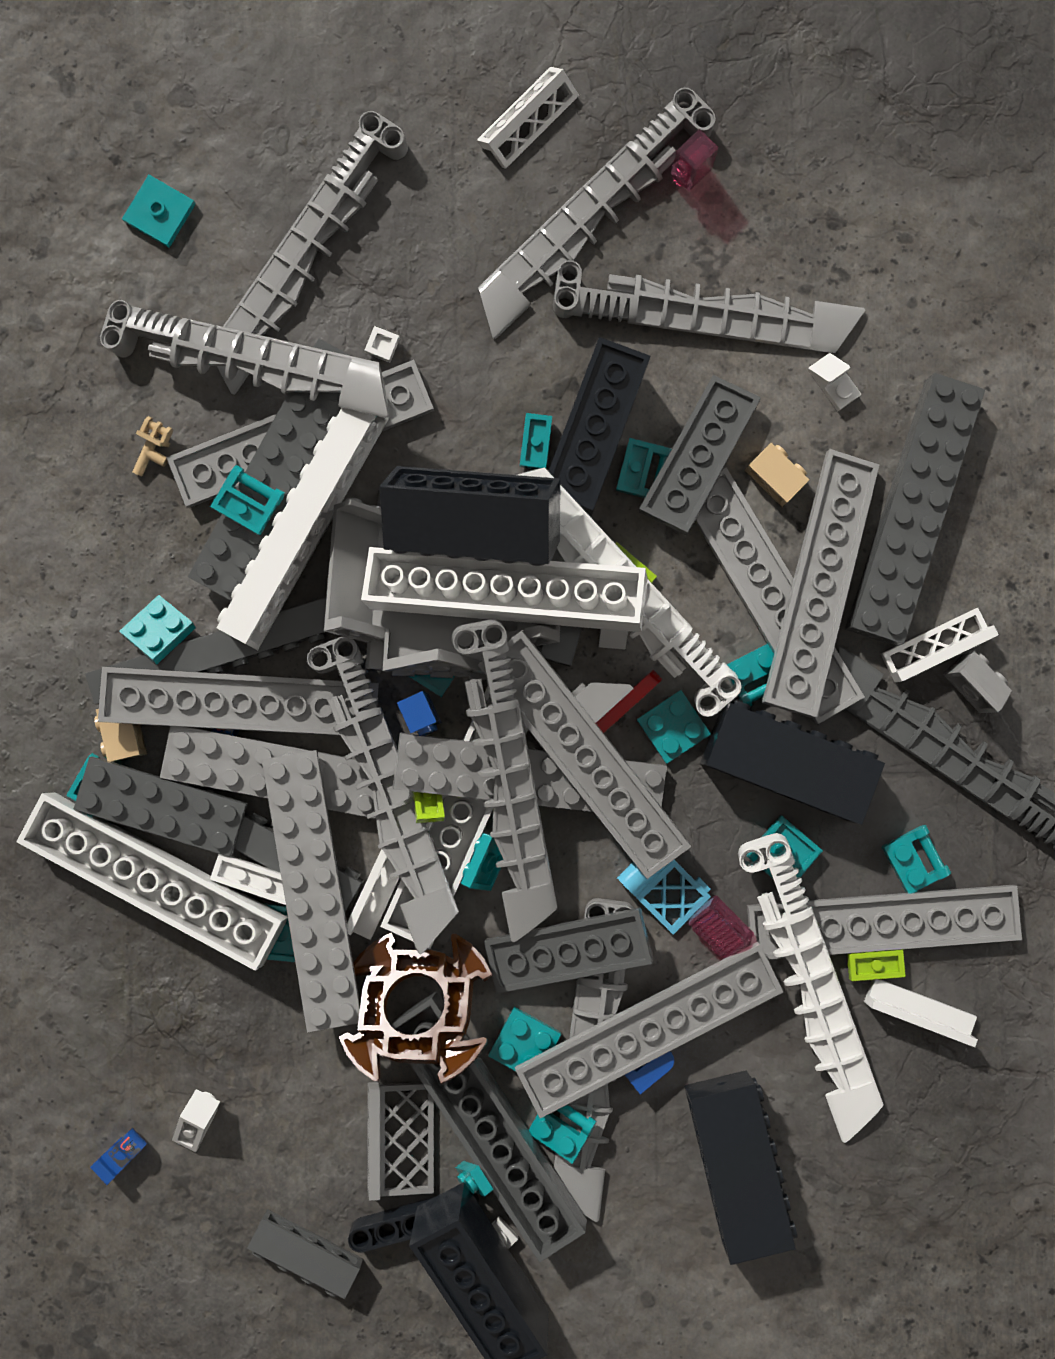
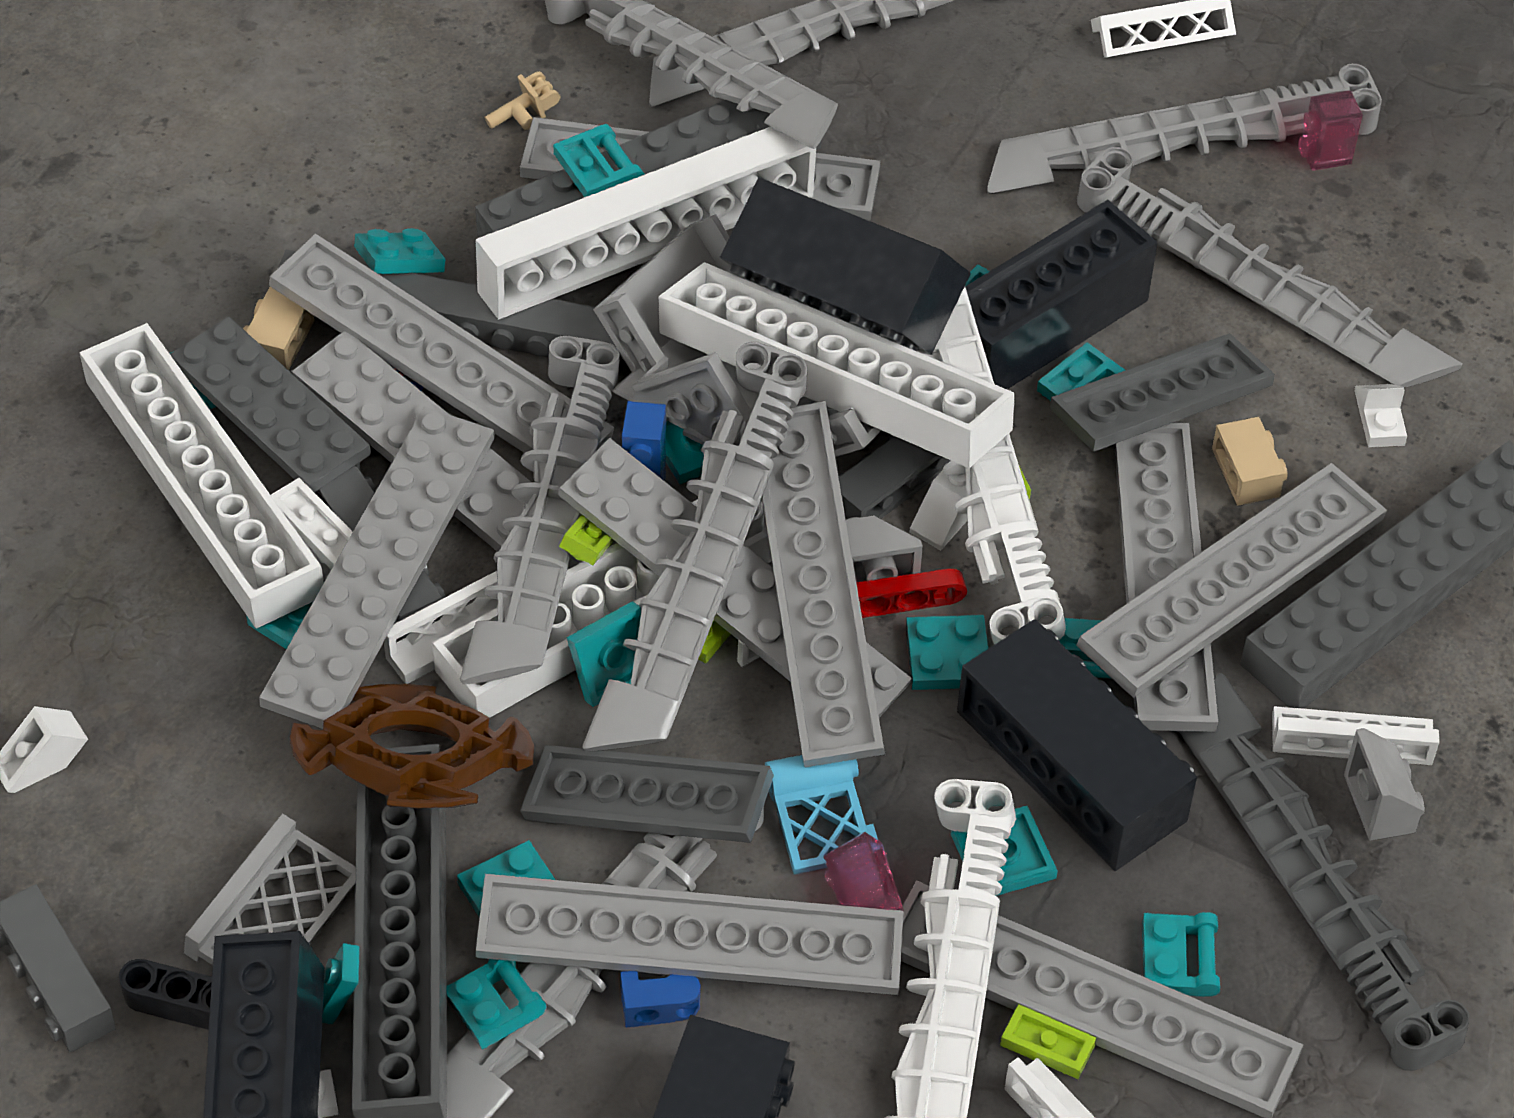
camera: 30 degrees right, 35 degrees down
(382, 344) = (853, 135): white plate -> none

